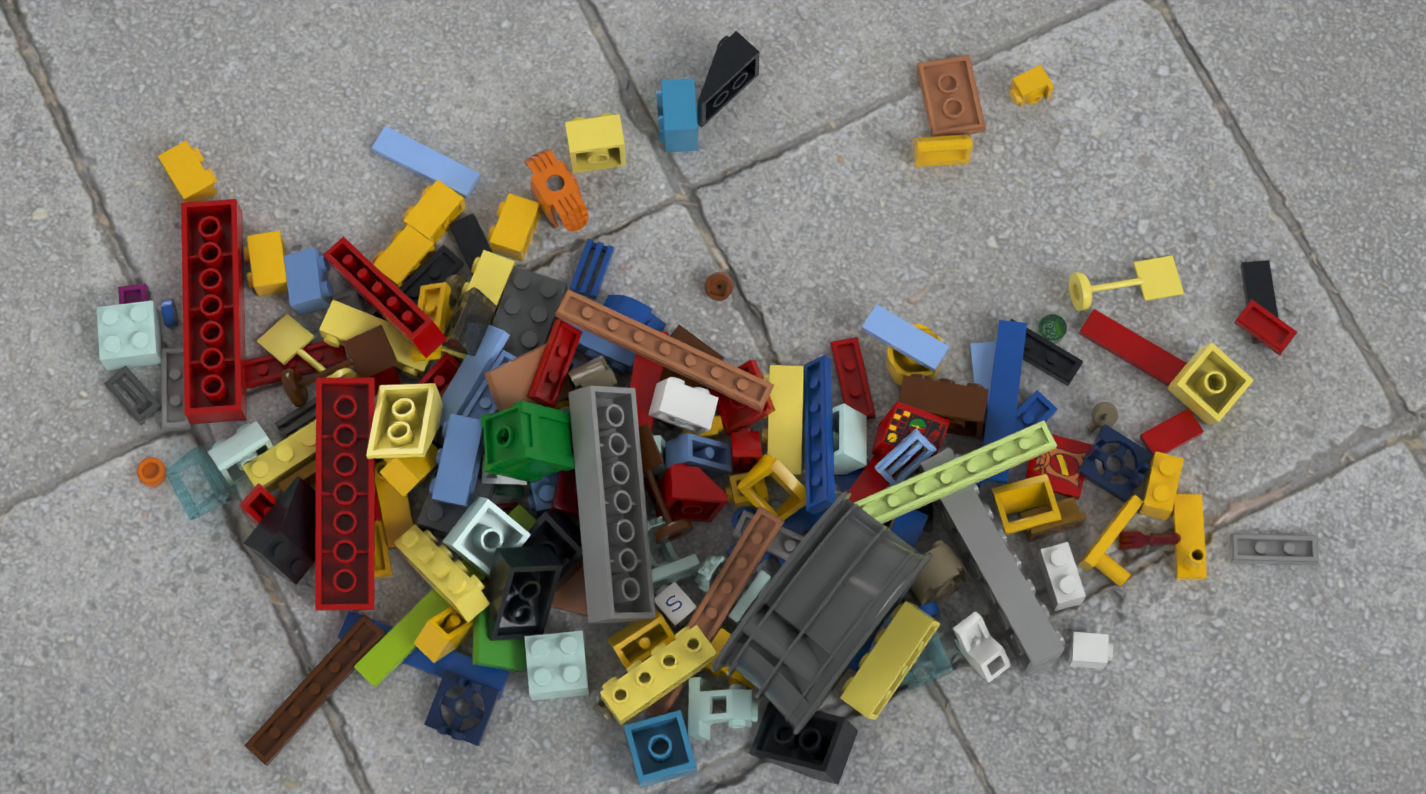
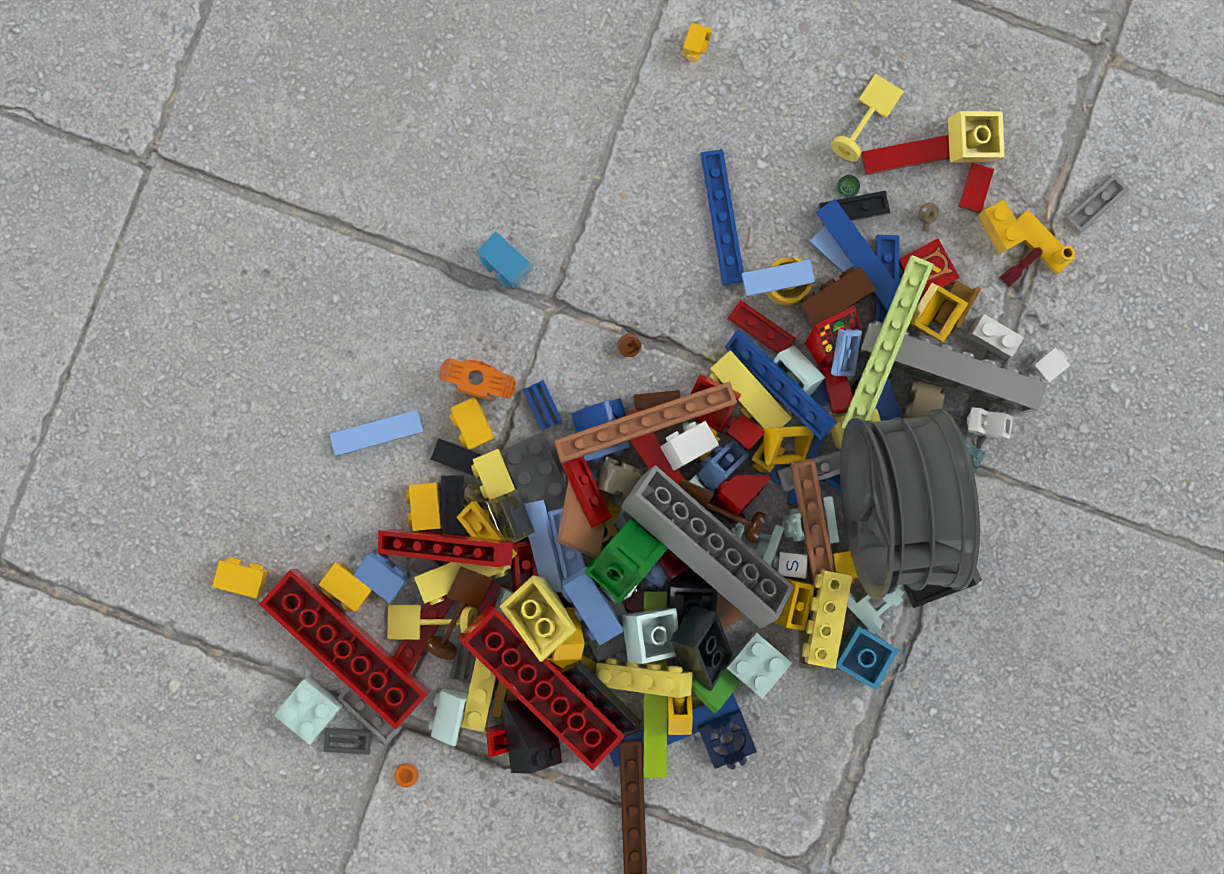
camera: 40 degrees left, 15 degrees up
(133, 293) = (286, 683): magenta tile -> none
(169, 312) = (318, 673): blue tile -> none
(220, 494) = (458, 750): clear light blue tile -> none
(388, 558) = (601, 696): none -> black plate
(435, 211) = (415, 461): yellow brick -> none
(596, 143) = (471, 325): light yellow brick -> none
(730, 72) = (507, 200): black slope -> none
(913, 251) = (722, 217): none -> blue tile
(942, 150) = (680, 132): yellow tile -> none
(950, 96) = (652, 93): nougat tile -> none
(1096, 554) = (1000, 301): yellow piece -> none
(1140, 455) = (947, 242): dark blue piece -> none
(1259, 286) = (953, 55): black tile -> none
(1265, 327) = (973, 69): red tile -> none

